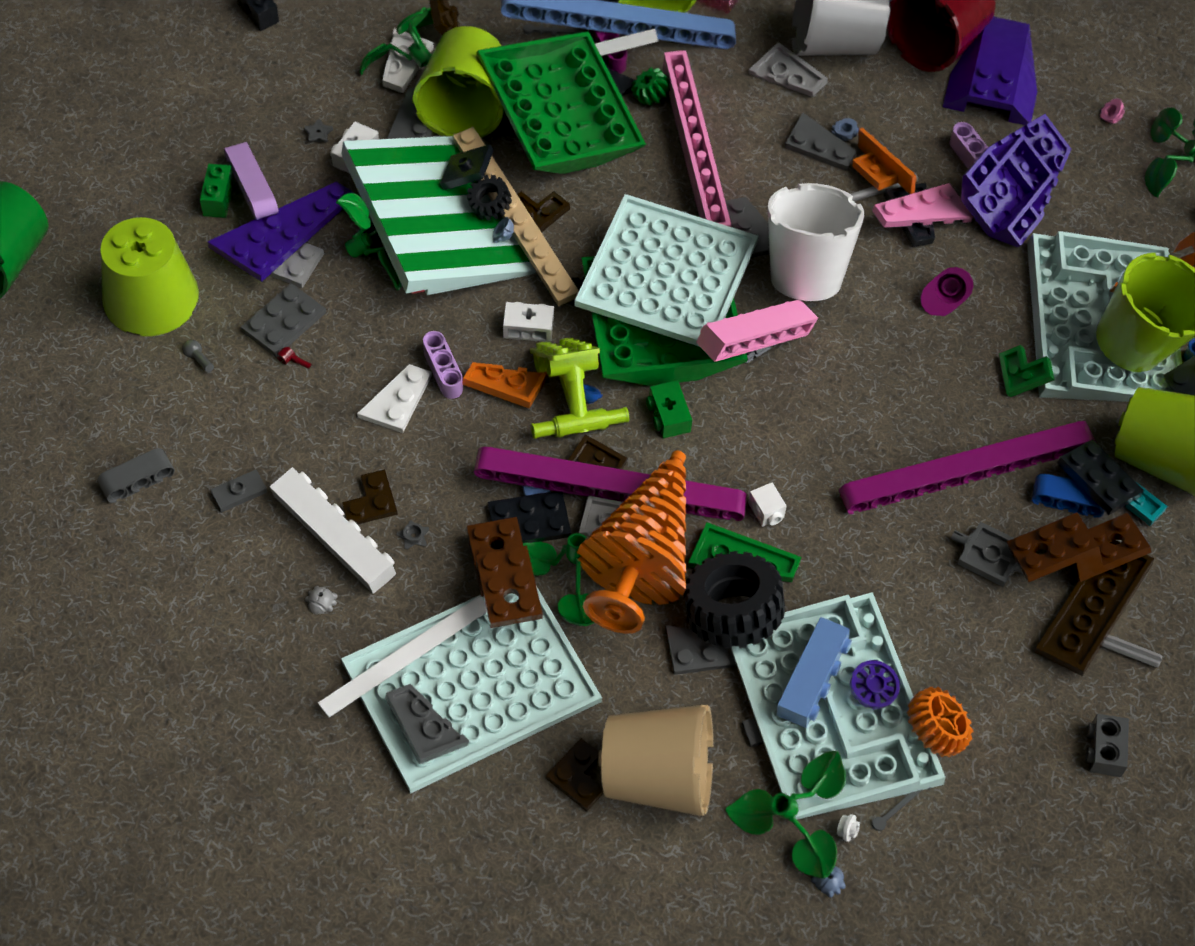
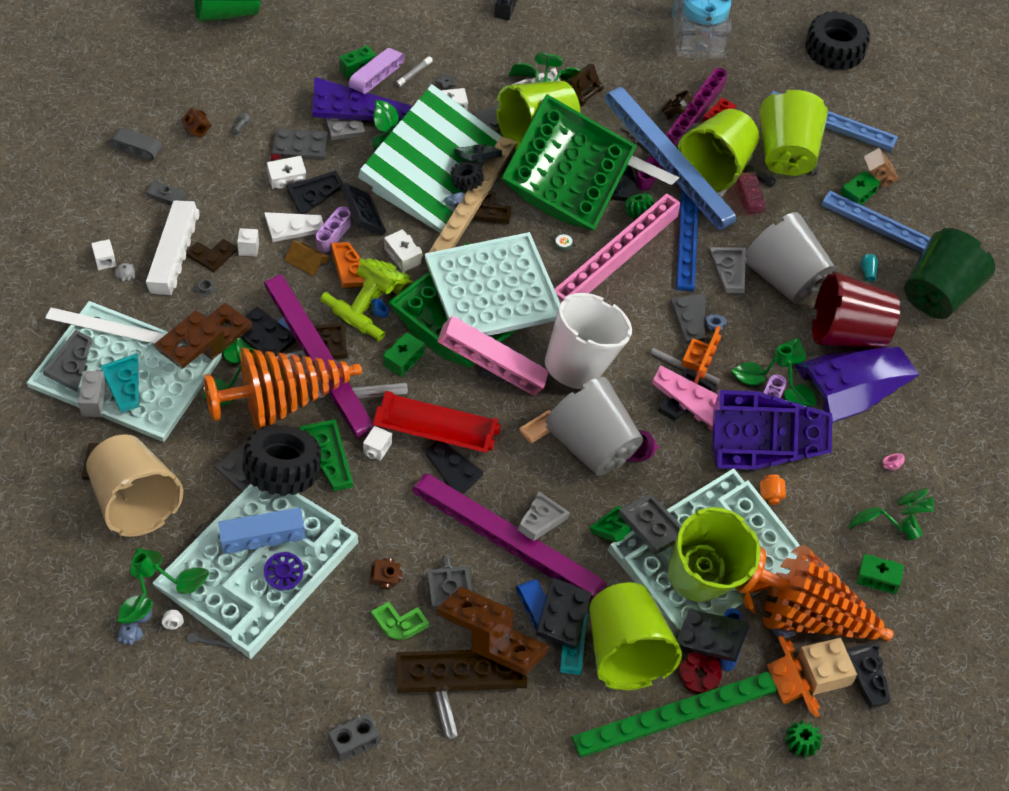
camera: 50 degrees right, 5 degrees down
(145, 278) = (261, 64): lime cone -> none
(162, 395) = (196, 122): none -> reddish brown brick
(273, 150) = (414, 71): none -> light grey bar
(281, 604) = (103, 254): none -> white brick
(312, 365) = (286, 172): none -> white brick
(368, 349) = (314, 191): none -> black wing
(392, 453) = (248, 242): none -> white brick
(443, 320) = (363, 209): none -> black plate
(458, 414) = (305, 257): none -> pearl gold panel
(493, 728) = (92, 394): none -> light grey brick
(497, 690) = (123, 381): none -> teal wing
(635, 180) = (563, 242): none -> tile
(700, 454) = (379, 390): none -> light grey axle
(728, 86) = (687, 244): none -> blue tile
(784, 436) = (437, 423): none -> red cylinder
(847, 458) = (453, 467): none -> black wing
(852, 354) = (535, 428): none -> light nougat tile
(915, 304) = (595, 427): none -> light grey cone
(928, 98) = (785, 355): none -> green plant
(939, 722) = (275, 635): orange gear -> none
(942, 593) = (385, 573): none -> reddish brown brick
(971, 421) = (542, 517): none -> light grey wing
(1003, 628) = (396, 626): none -> bright green plate
(1057, 336) = (651, 523): none -> dark grey plate
(1076, 220) = (772, 489): none -> orange head

